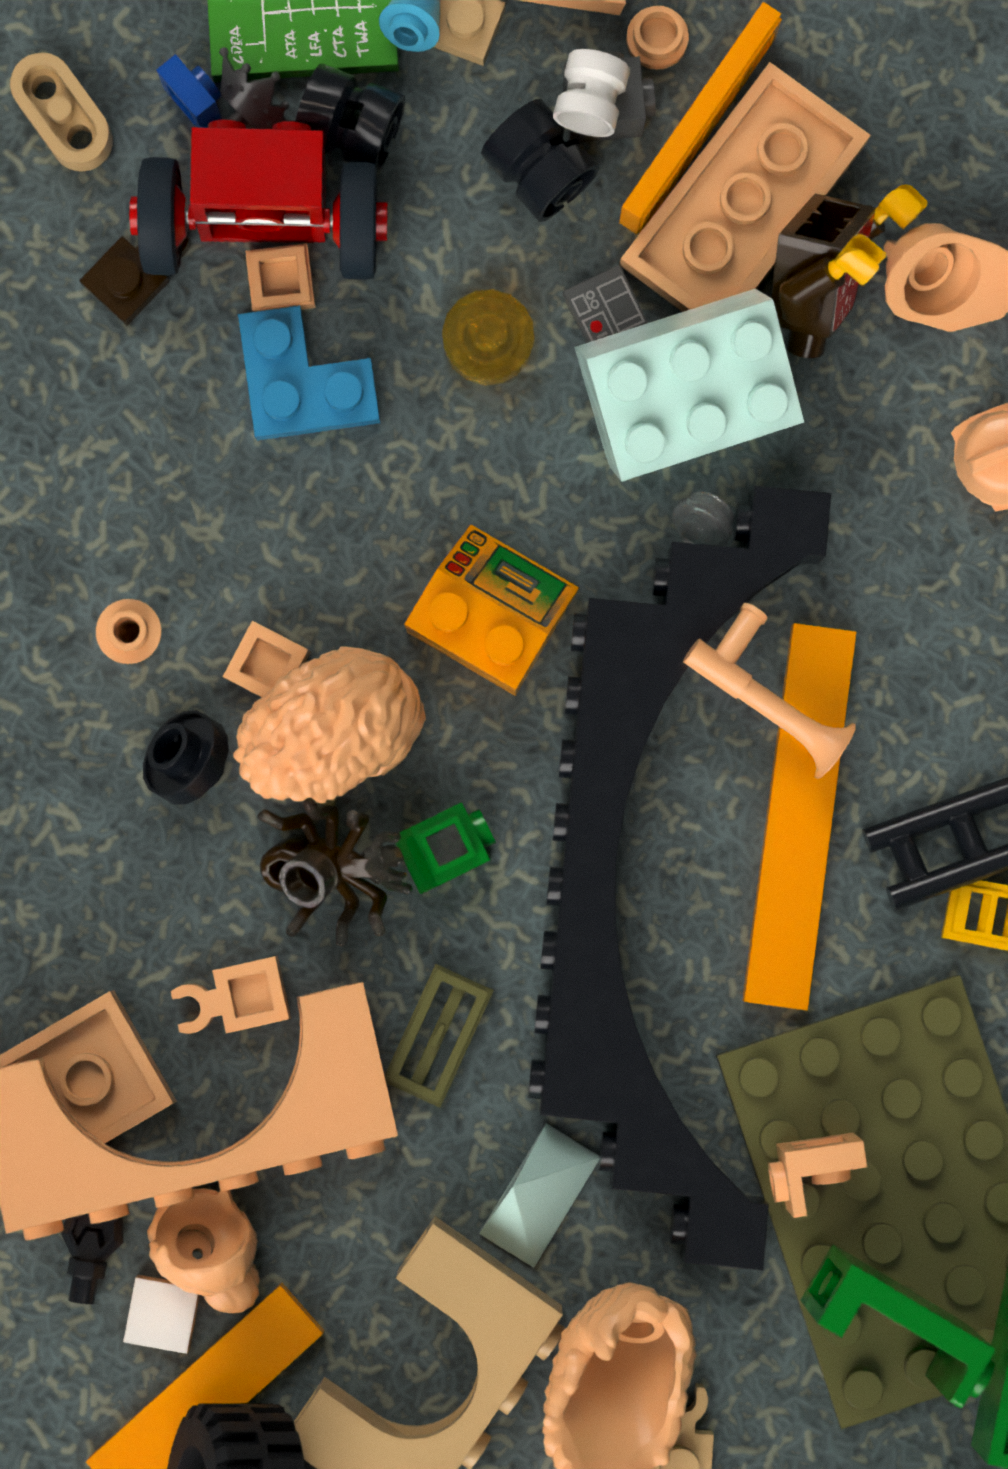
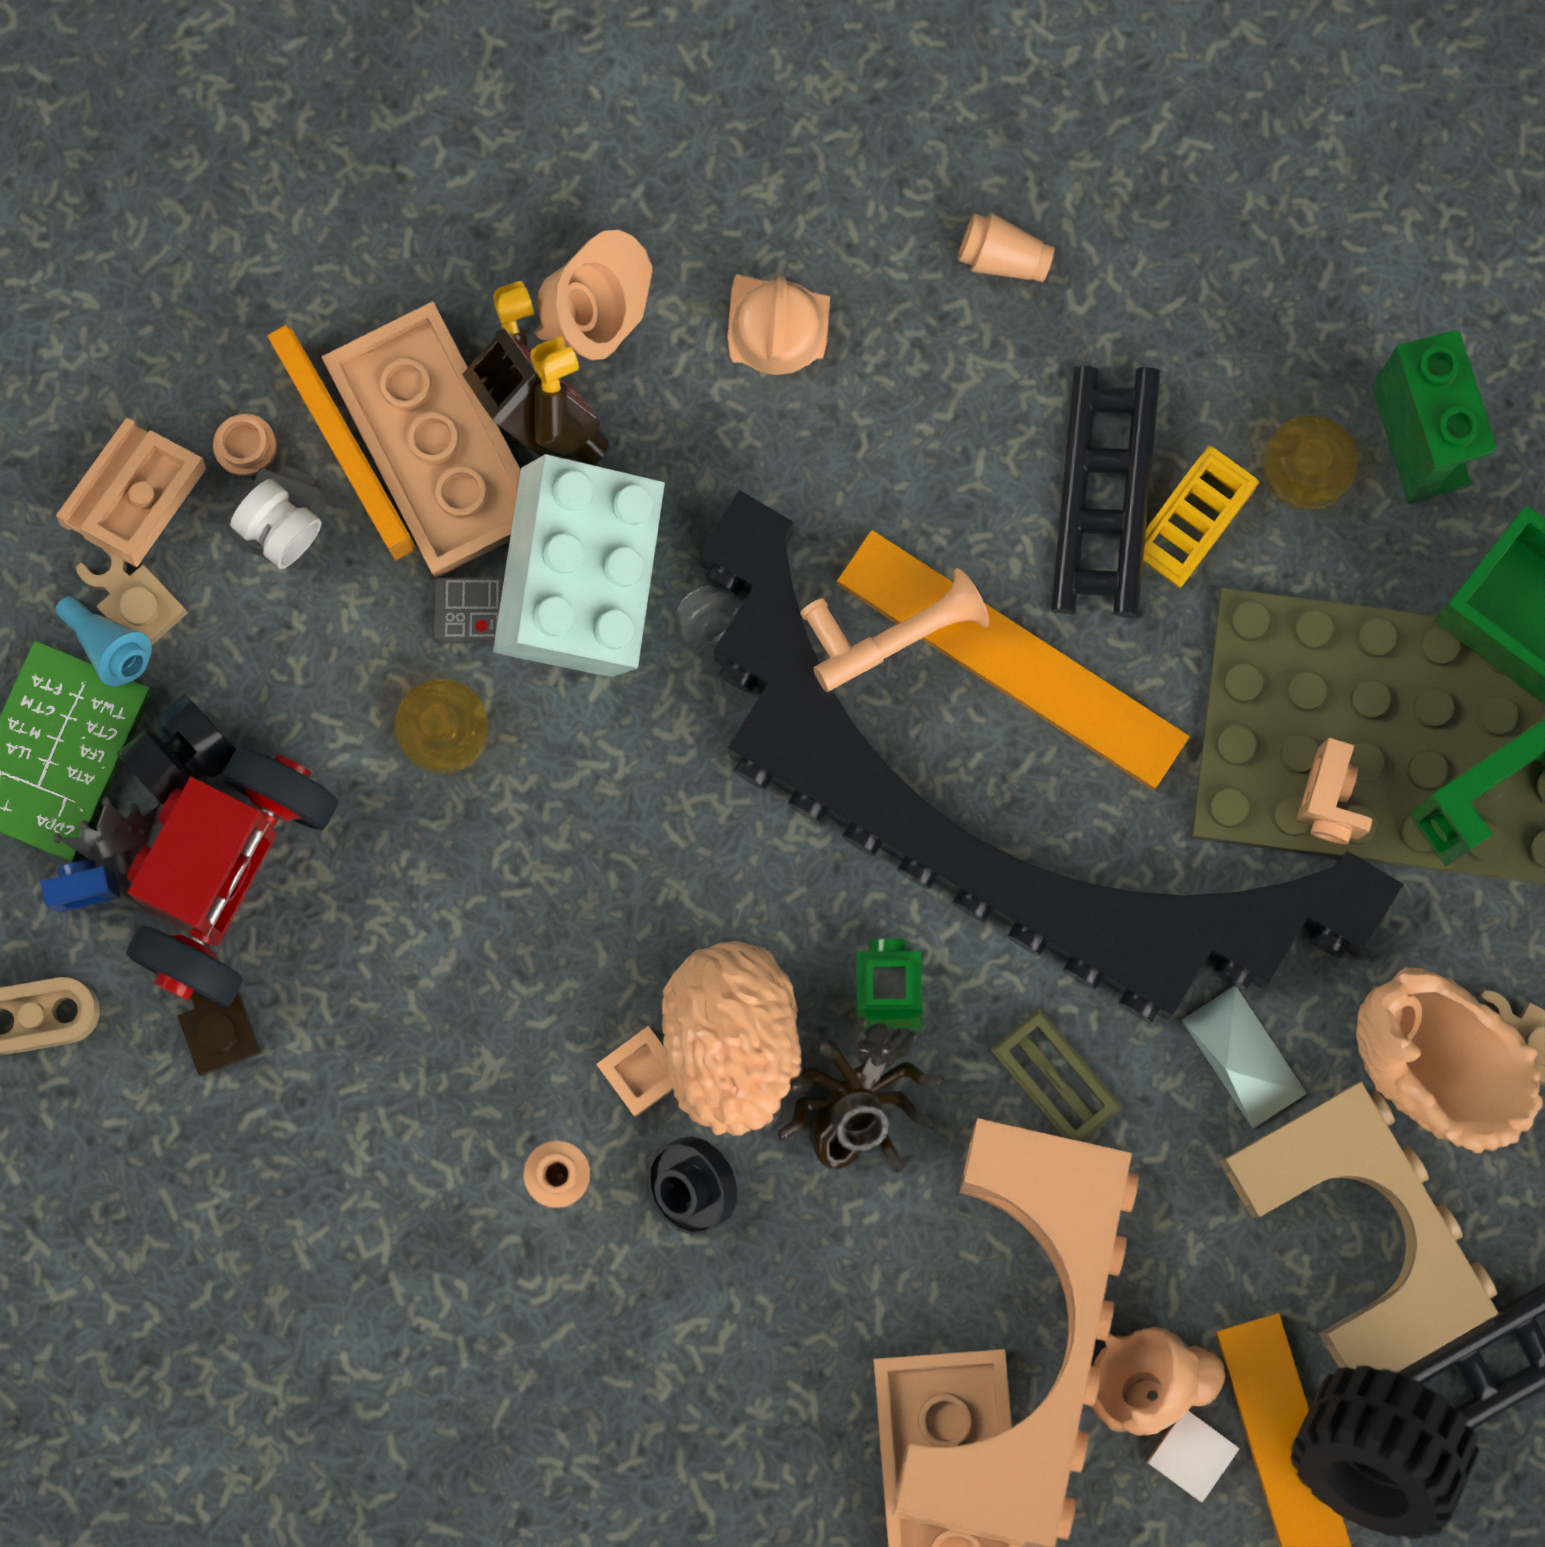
camera: 60 degrees left, 5 degrees down
(90, 1248) = (1100, 1494): black piece -> none
(244, 996) = (936, 1236): light nougat plate -> none
(280, 277) = (291, 890): light nougat tile -> none
(290, 394) = (398, 933): dark azure plate -> none
(490, 609) = (693, 843): light orange slope -> none
(534, 154) = (305, 601): black wheel -> none

